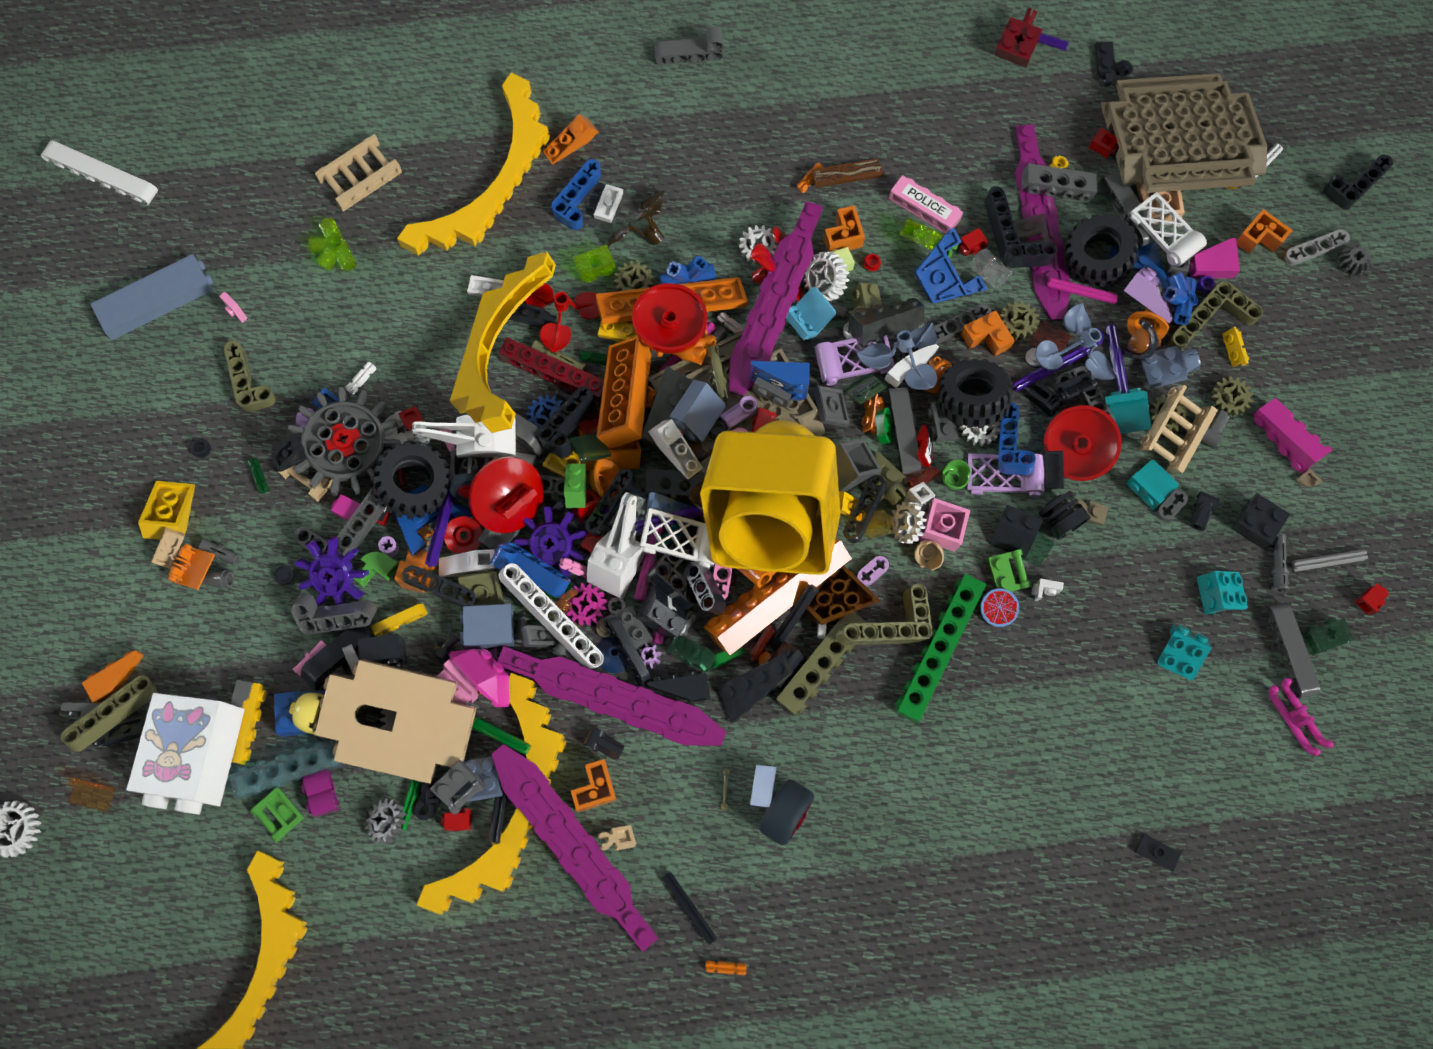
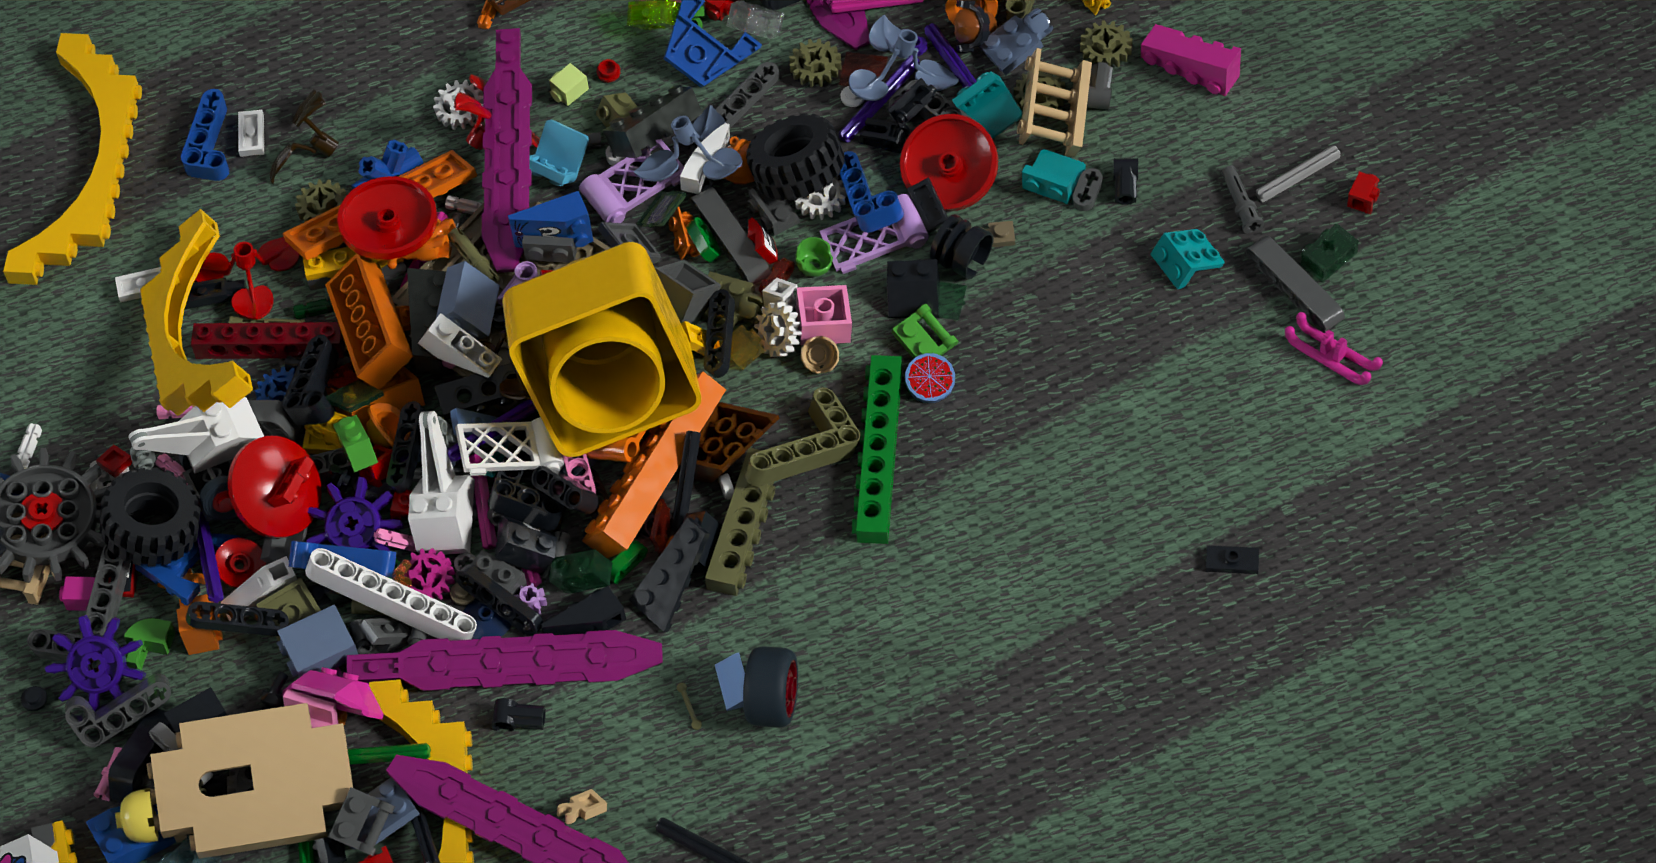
camera: 15 degrees left, 15 degrees down
(386, 541) = (145, 609): lavender bush -> none
(393, 622) = (210, 677): yellow beam -> none
(570, 139) = (171, 78): orange slope -> none
(596, 256) = (254, 208): clear neon green brick -> none
(600, 788) = (534, 763): orange brick -> none
(833, 270) = (563, 90): white gear -> none
(847, 233) = (561, 47): orange brick -> none
(870, 568) = (756, 397): lavender beam -> none
(989, 330) = (782, 87): orange brick -> none
(1049, 586) = (978, 332): white bracket -> none
(1184, 652) = (1169, 338): teal bracket -> none
(1260, 521) = (1196, 162): black brick -> none
(1308, 479) = (1236, 97): dark tan tile -> none

